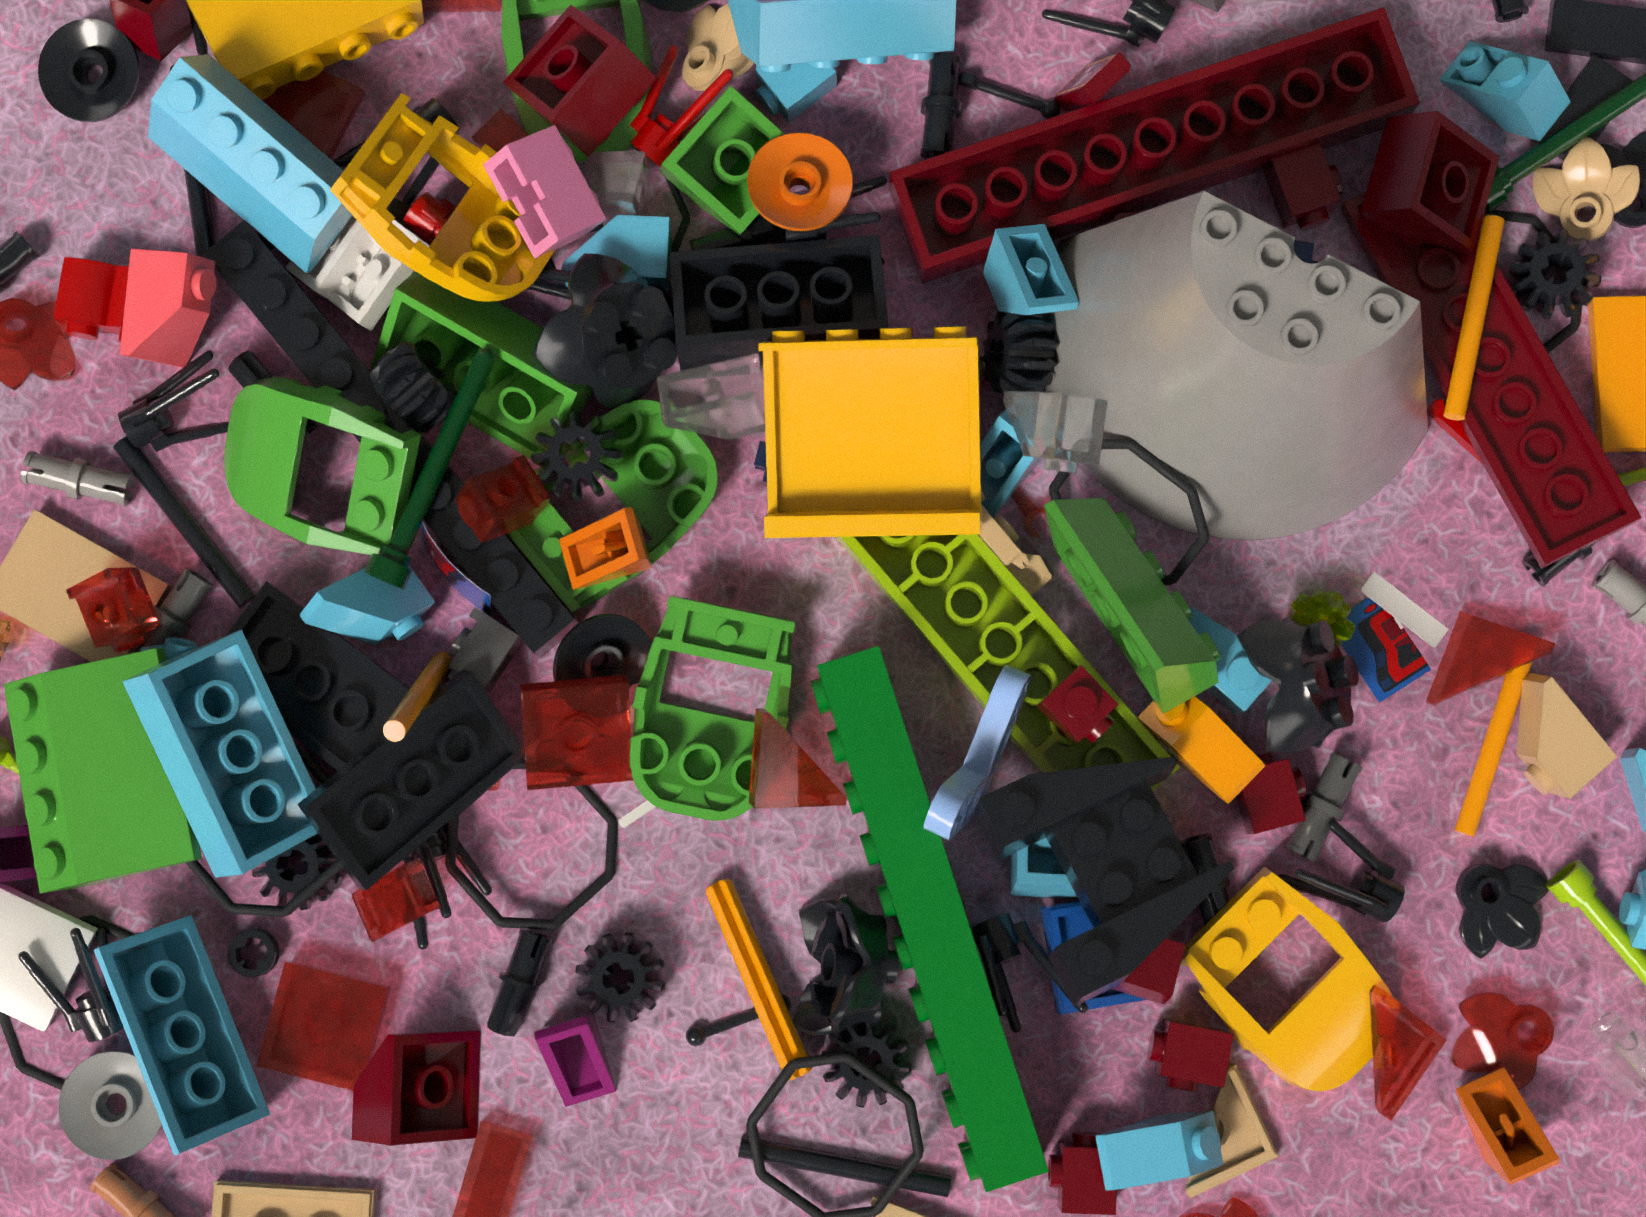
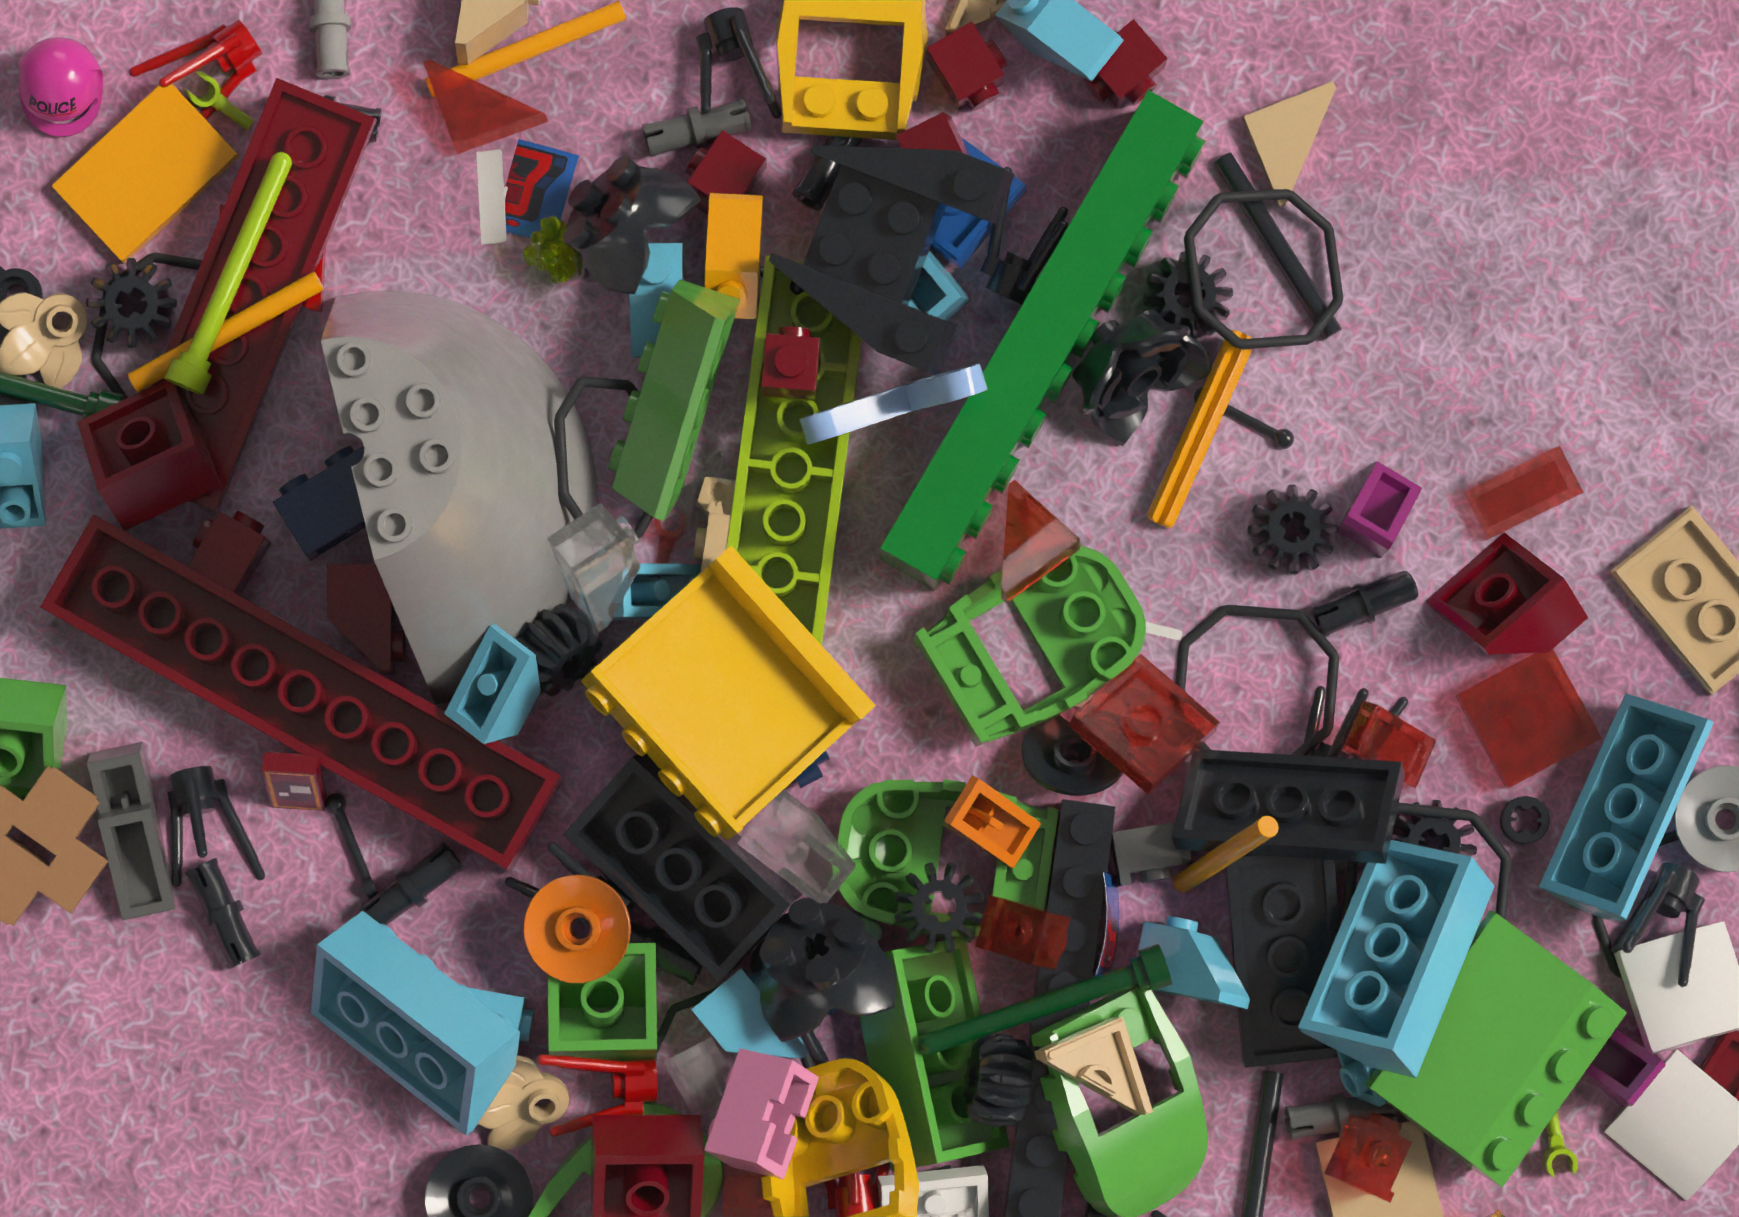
camera: 140 degrees left, 0 degrees up
(354, 466) = (1103, 1062): none -> tan tile
(1469, 265) = (192, 366): none -> lime piece

